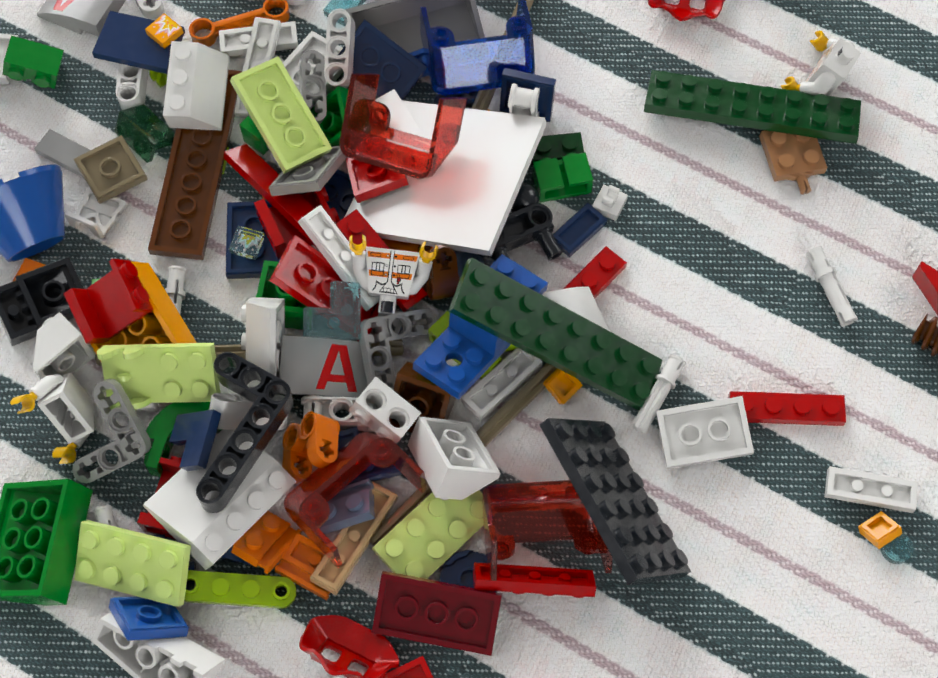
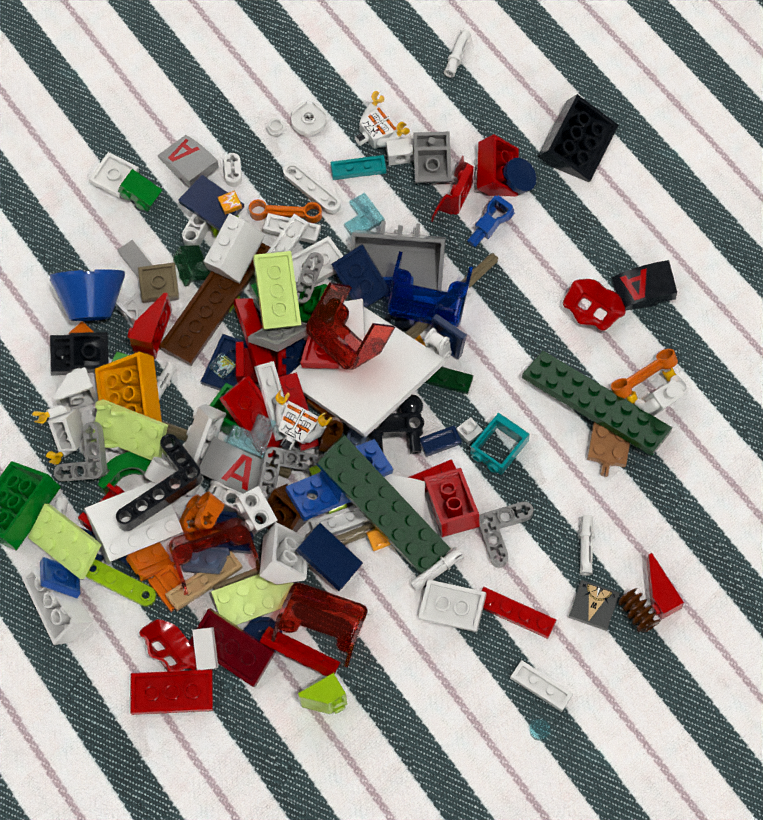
camera: 25 degrees right, 0 degrees up
(109, 303) = (117, 373): red panel -> none
(126, 225) = (151, 327): none -> red slope
(197, 433) = (134, 476): dark blue tile -> none
(333, 38) = (344, 254): white beam -> none
(401, 630) = (205, 648): none -> white tile
(509, 434) = (329, 556): none -> dark blue tile
(563, 177) = (445, 401): green piece -> none
(601, 625) = (324, 696): none -> lime slope
(616, 500) = (369, 623): black plate -> none
(637, 299) = (452, 502): none -> red slope
(662, 180) = (509, 428): none -> teal window
(705, 304) = (497, 523): none -> light grey beam
(808, 25) = (665, 360): none -> orange piece
(880, 358) = (594, 605): none -> dark grey tile
(880, 530) = (533, 713): light orange tile -> none

